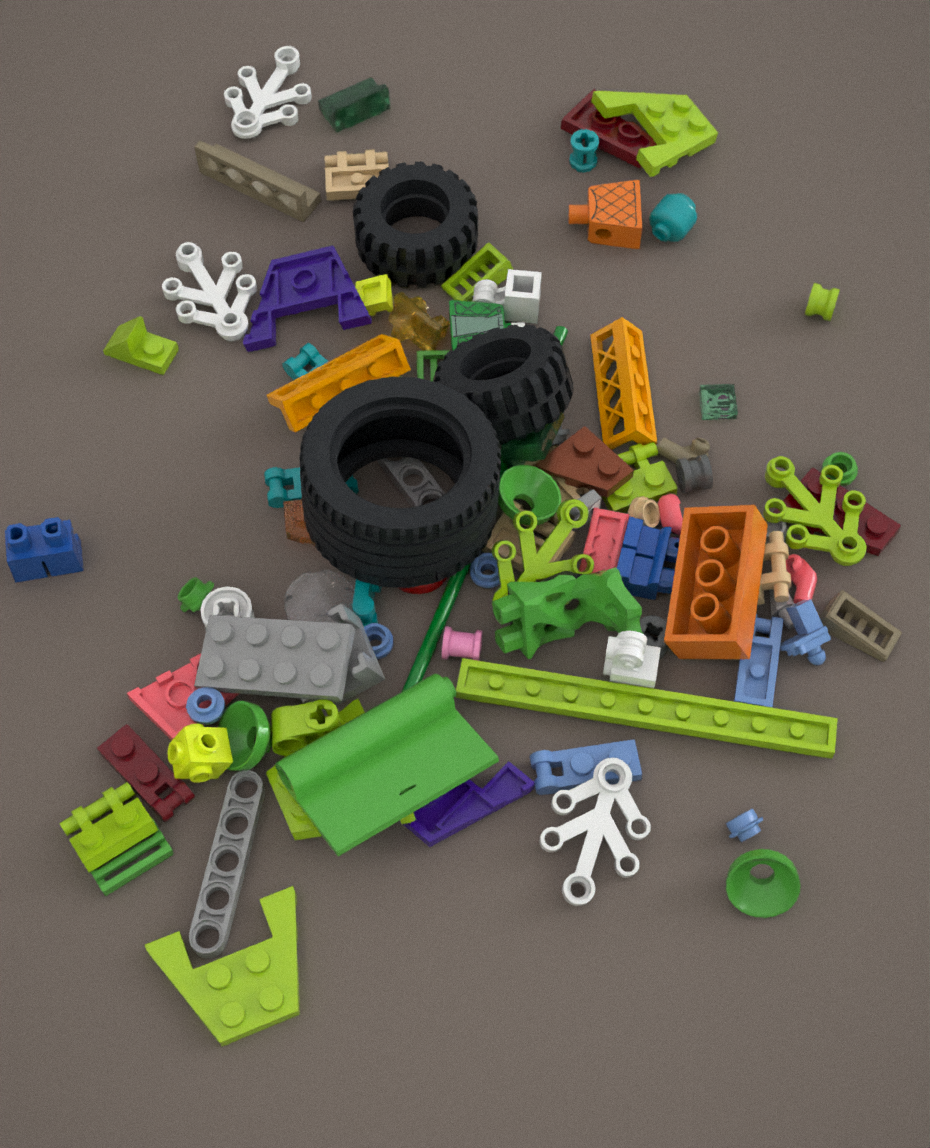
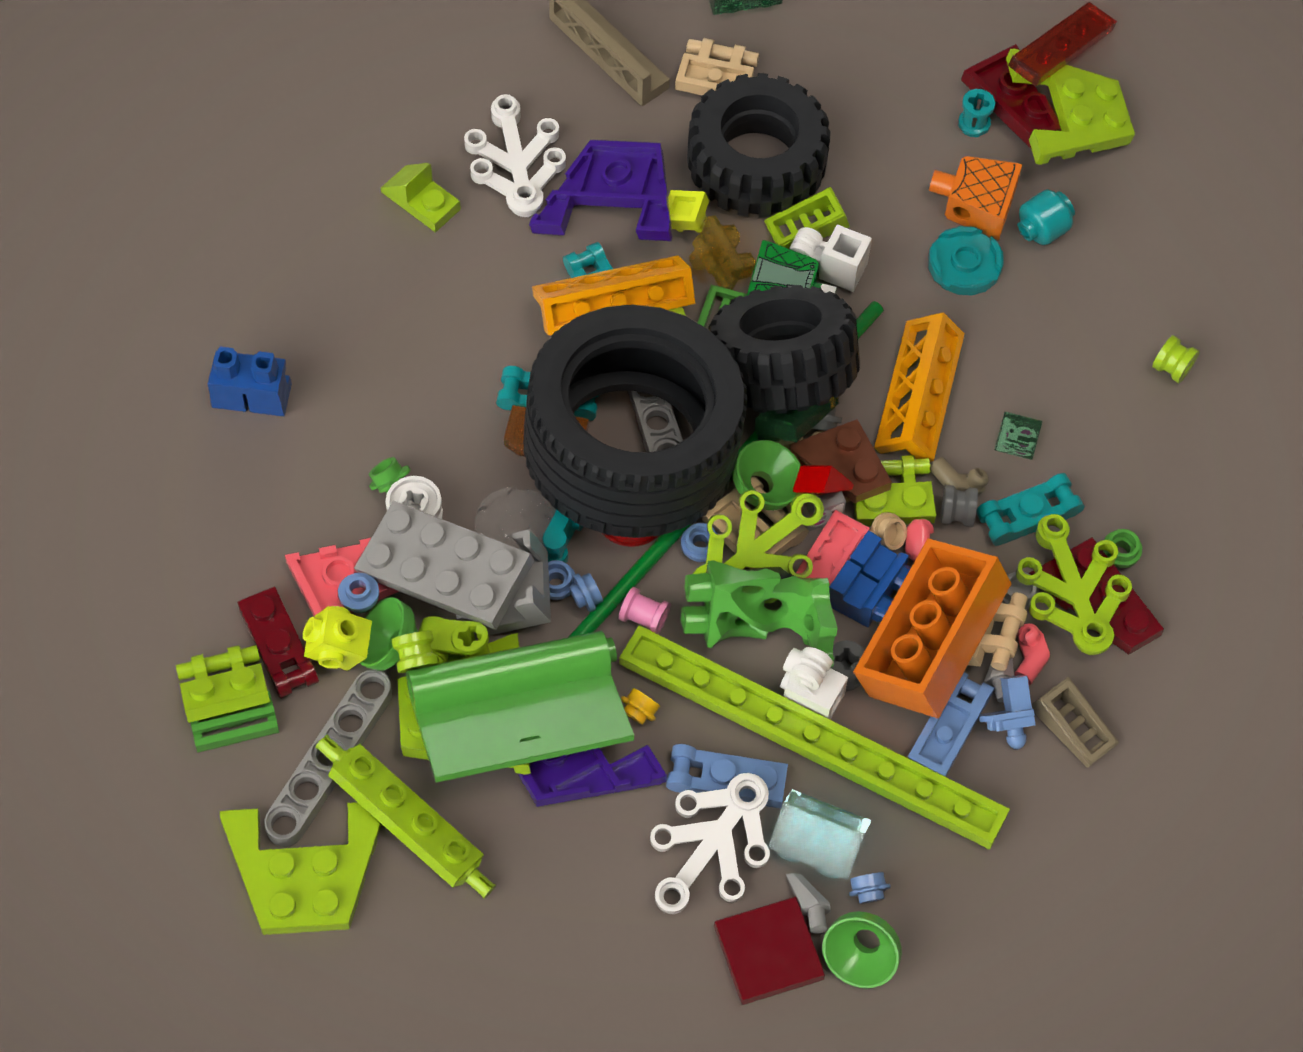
camera: 15 degrees right, 0 degrees up
(277, 743) = (414, 650): none -> lime wheel
(317, 893) = (406, 815): none -> lime plate
(405, 643) = (585, 592): none -> medium blue plate
(489, 728) = (640, 706): none -> yellow plate
(575, 485) = (821, 480): none -> red slope
(619, 272) = (965, 261): none -> teal tile
(632, 77) = (1062, 43): none -> clear red tile
(679, 910) = (769, 950): none -> dark red tile
(687, 793) = (819, 835): none -> clear light blue brick
(698, 855) = (810, 902): none -> light grey bar
(751, 459) = (1028, 508): none -> teal plate

